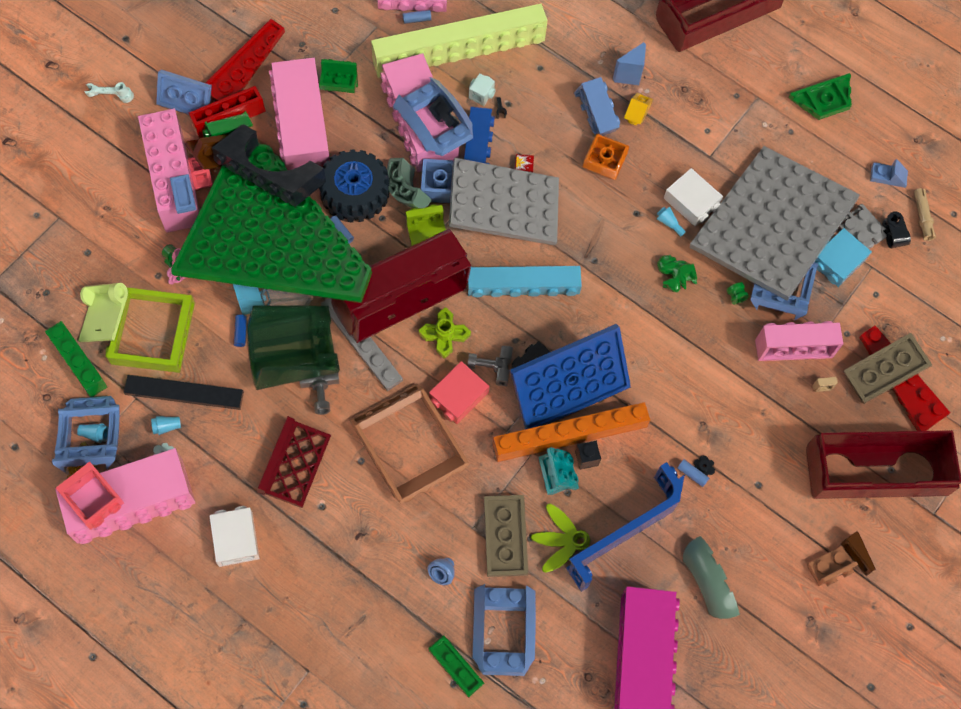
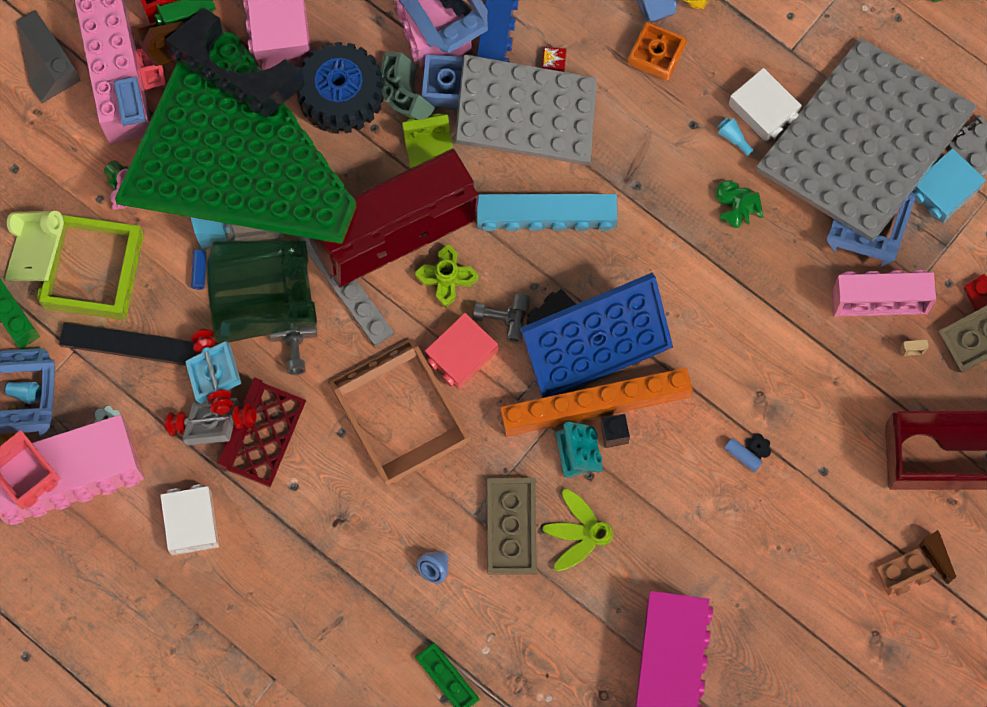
camera: 10 degrees right, 5 degrees up
(114, 168) = (45, 60): none -> dark grey wedge
(165, 424) = (106, 384): medium azure cone -> none
(251, 453) = (206, 426): none -> plate
(253, 412) = (212, 371): none -> medium azure plate
(340, 227) = (323, 143): medium blue axle -> none
(507, 600) = (505, 602): medium blue wedge -> none
(671, 486) = (708, 460): blue panel -> none
(710, 579) = (754, 584): sand green brick -> none
(737, 293) = (813, 230): green wheel -> none

